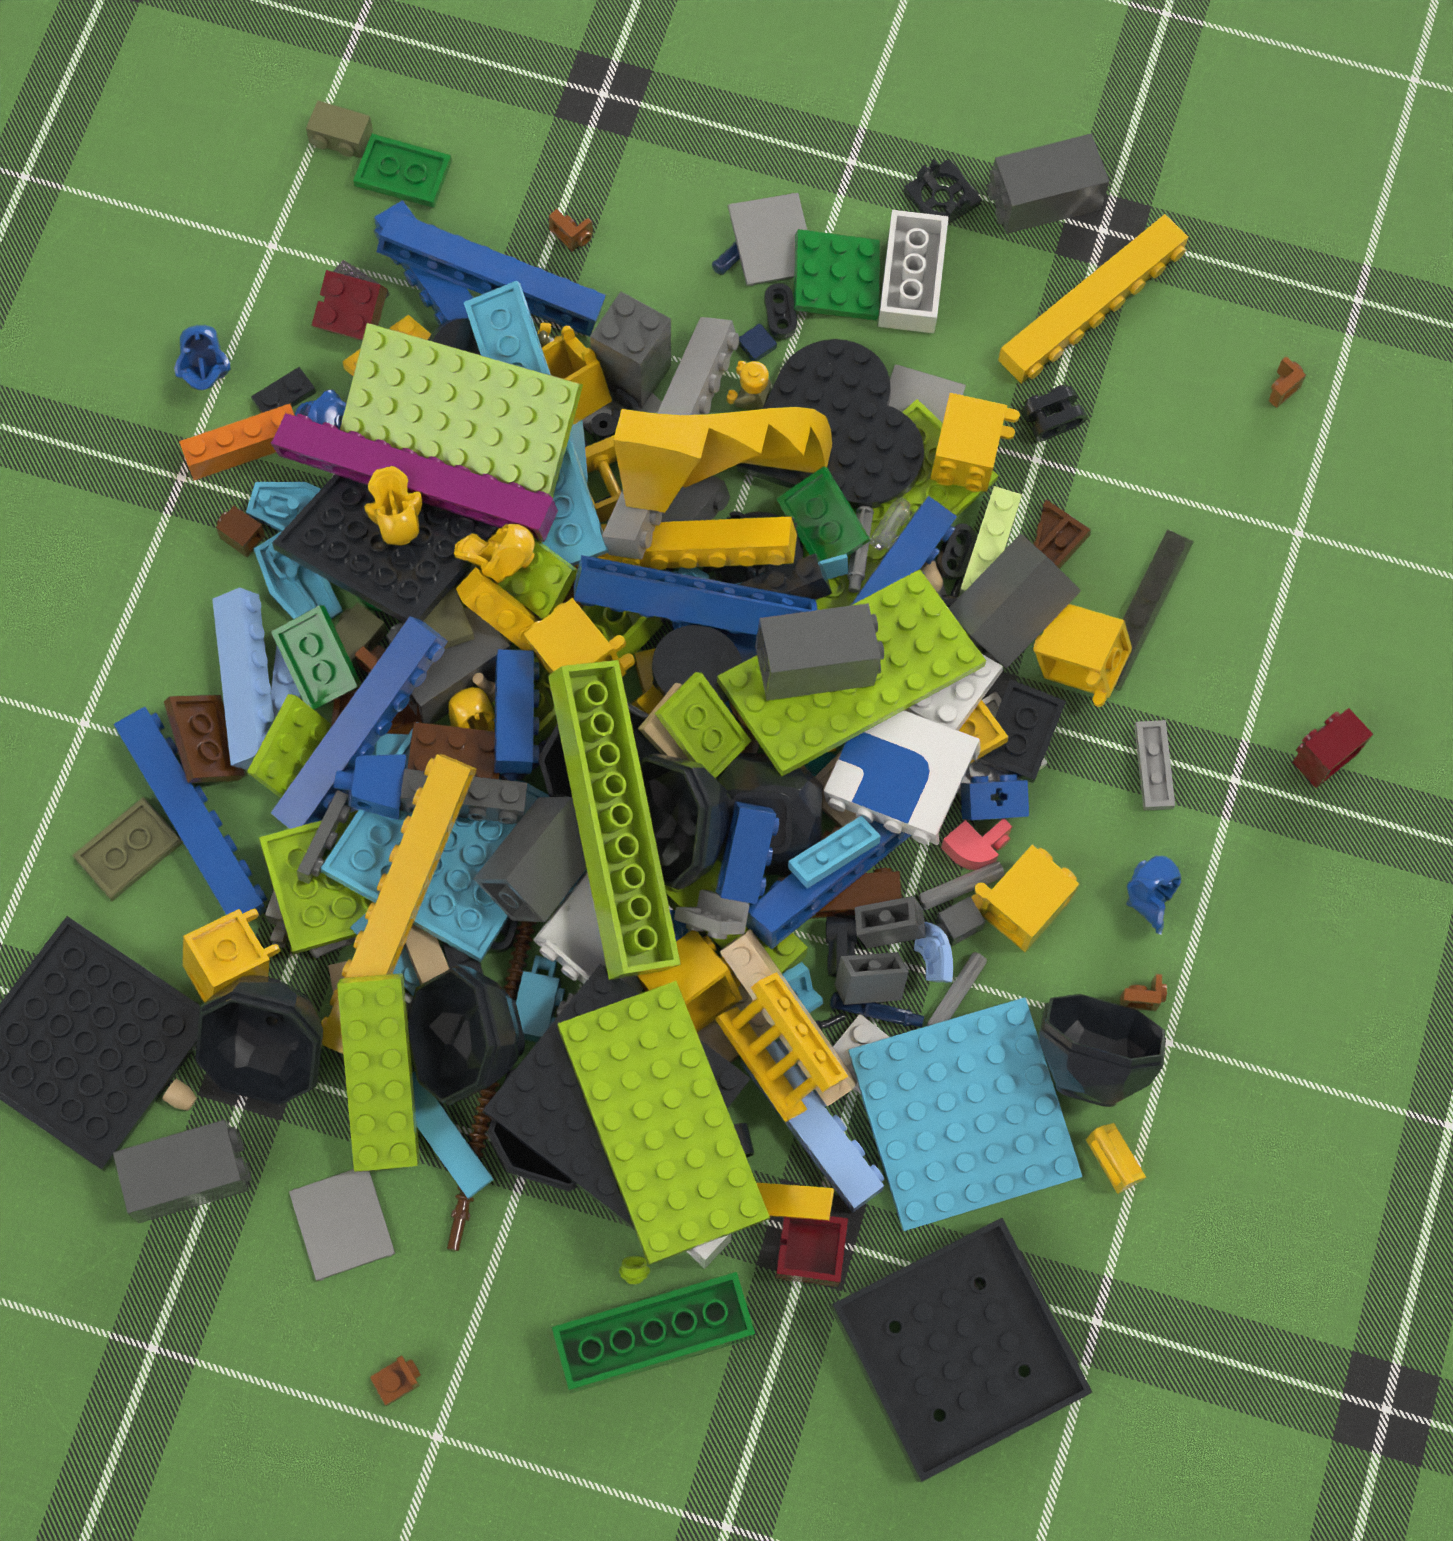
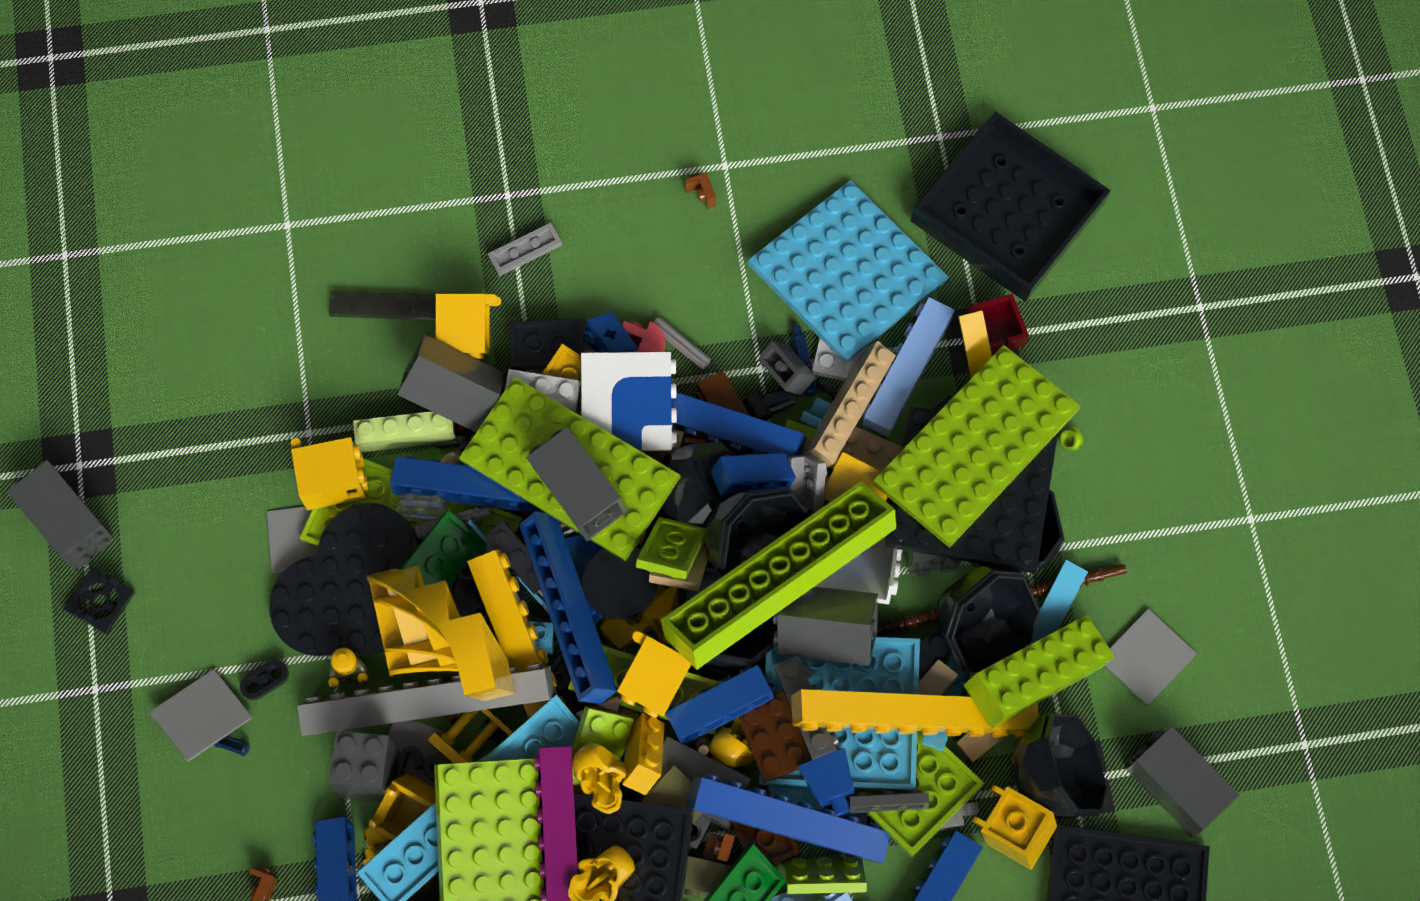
camera: 115 degrees left, 0 degrees up
(179, 1095) = (1125, 821): tan hose -> none
(396, 1380) = (1231, 562): dark orange bracket -> none
(538, 999) = (919, 593): medium azure brick -> none
(653, 1332) = (1110, 403): green brick -> none
(757, 343) = (300, 686): dark blue tile -> none
(800, 1035) = (863, 385): yellow fence -> none
(834, 852) = (715, 421): medium azure plate -> none
(836, 274) = (212, 649): green plate -> none
(890, 922) = (739, 373): dark grey brick -> none
(913, 271) = (185, 588): white brick -> none
(936, 954) = (744, 333): light blue tile -> none
(956, 554) = (420, 451): black plate -> none
(958, 989) = (761, 313): light grey axle -> none
(960, 921) = (711, 331): dark grey brick -> none
(1027, 897) = (672, 288): yellow container -> none
(1059, 399) = (266, 445): black brick -> none
(1059, 534) = (371, 388): reddish brown wing -> none
(1093, 299) = (150, 443): yellow brick -> none
(1100, 1048) = (761, 191): black rock -> none
(1115, 1157) = (827, 163): yellow tile -> none
(1151, 887) = (624, 214): blue head -> none
(1289, 382) = (165, 273): dark orange bracket -> none
(1331, 747) = (458, 132): dark red piece -> none

